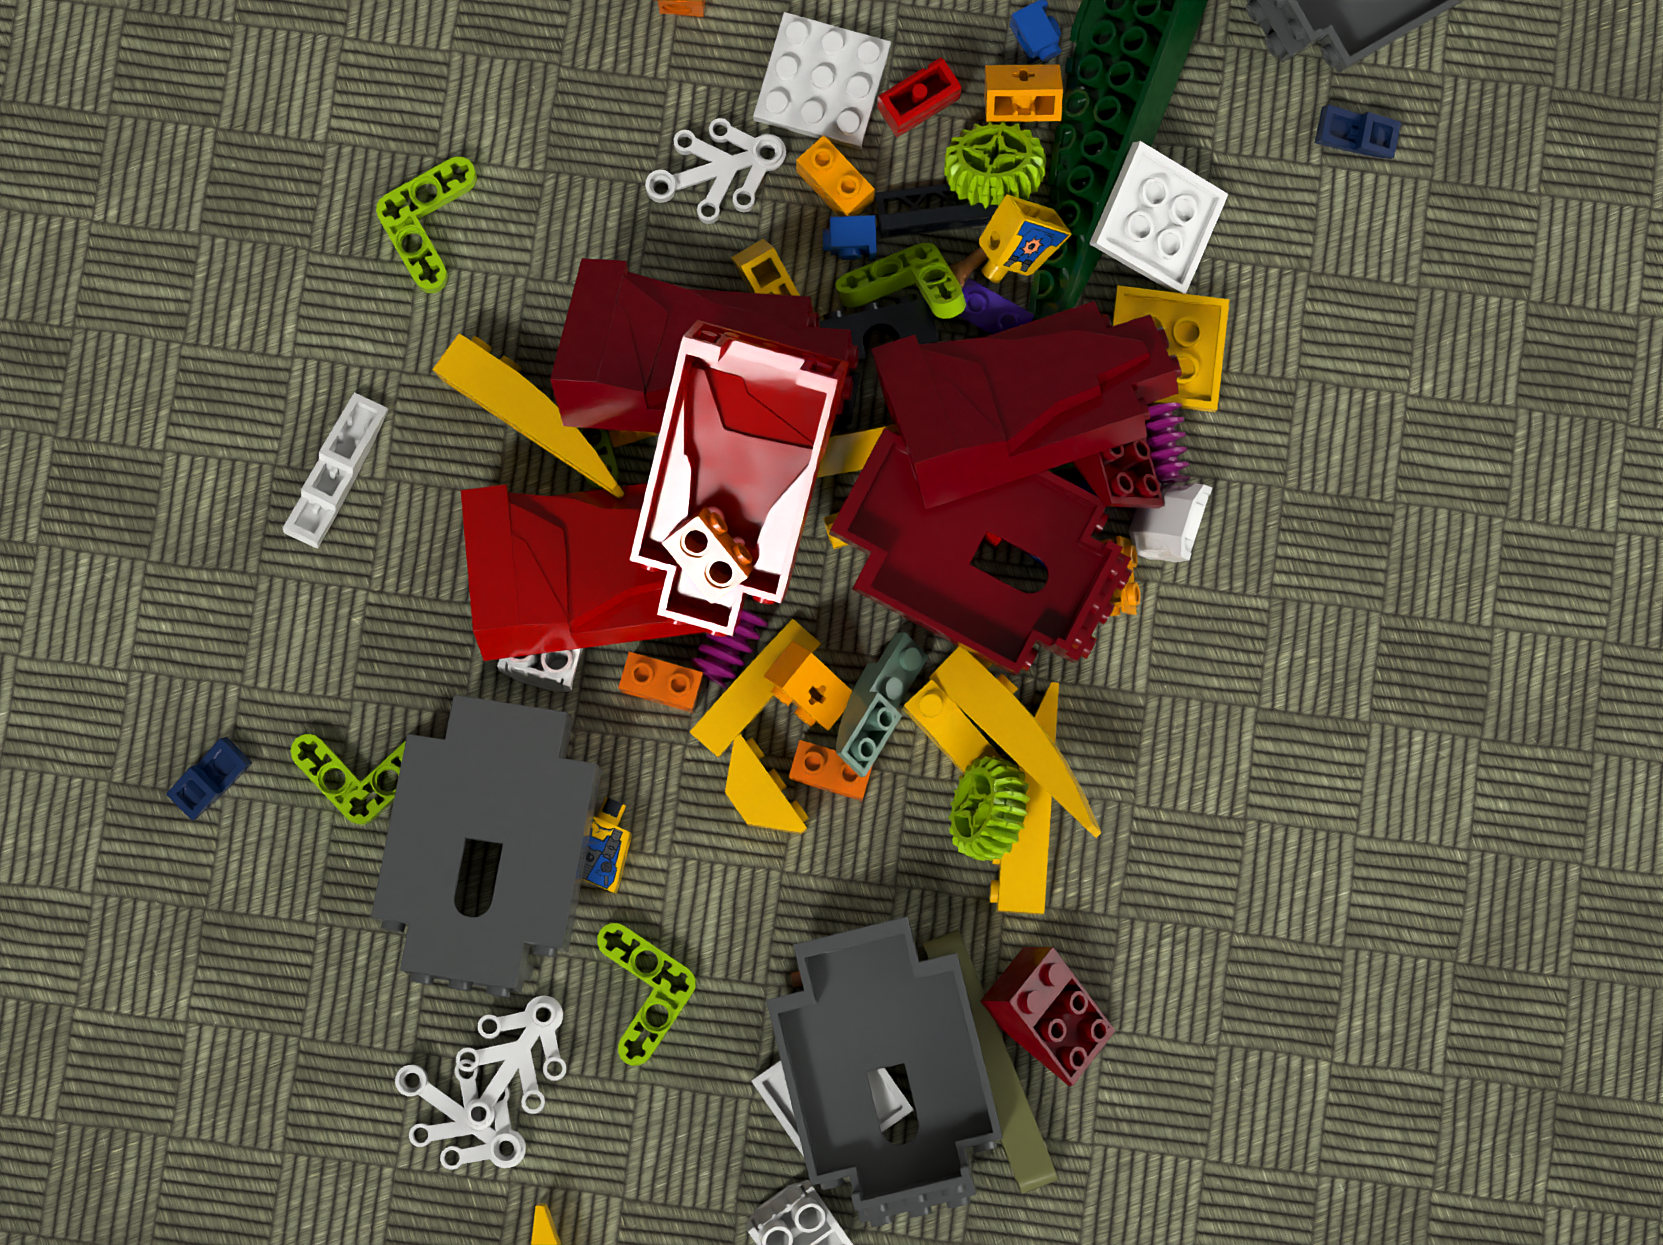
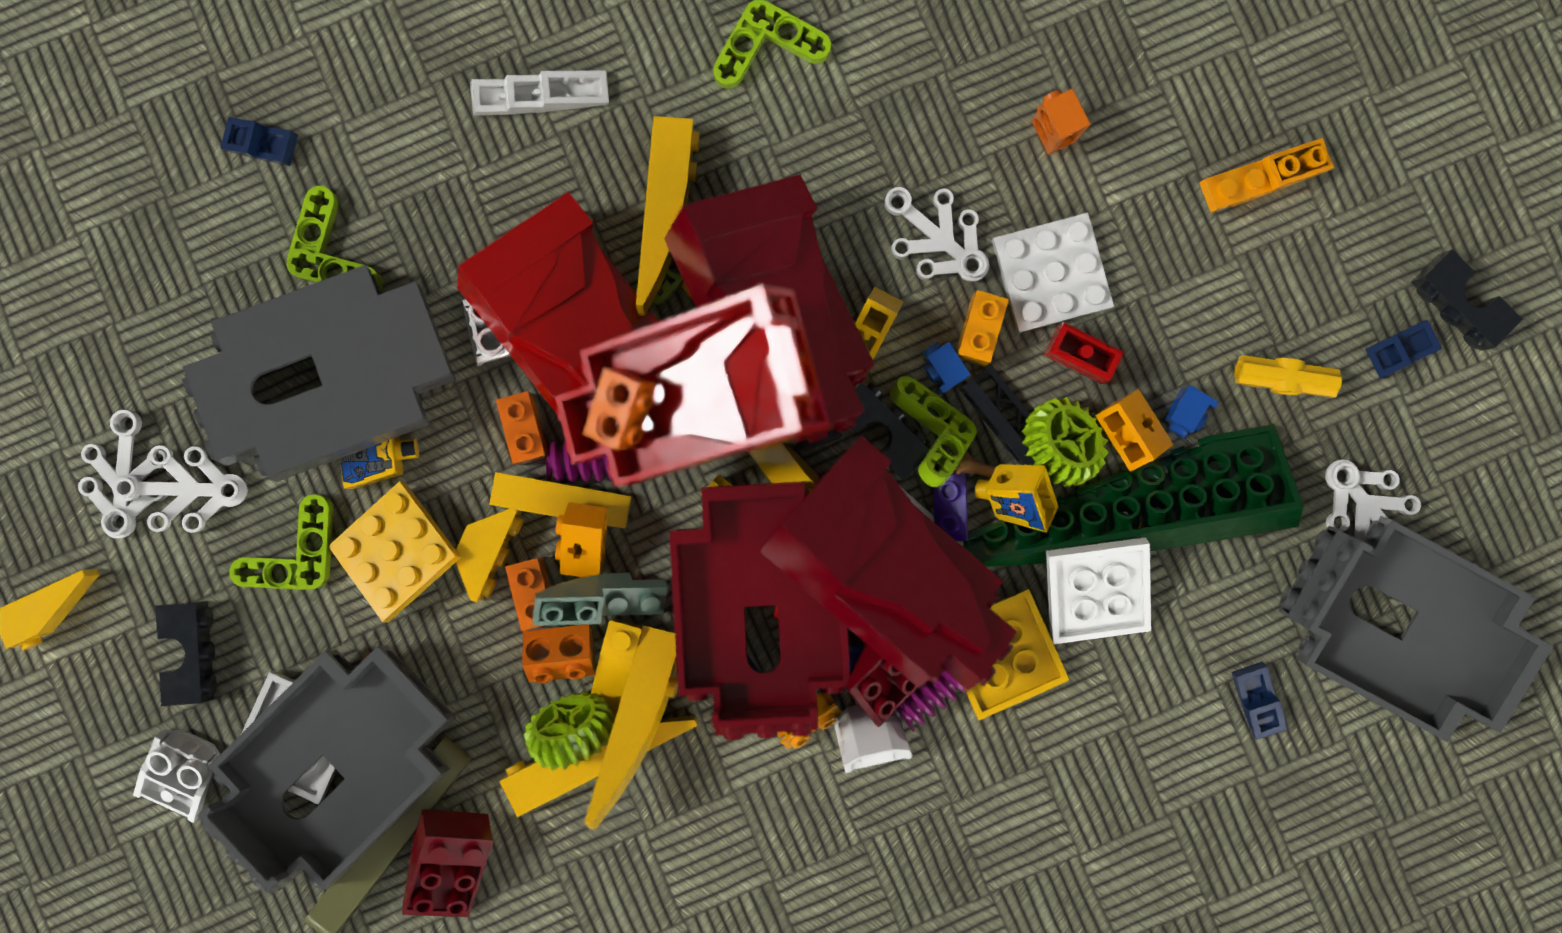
camera: 55 degrees right, 5 degrees up
(706, 882) = (394, 552): none -> yellow plate
(713, 1166) = (190, 626): none -> black arch
(906, 778) = (558, 646): none -> orange brick

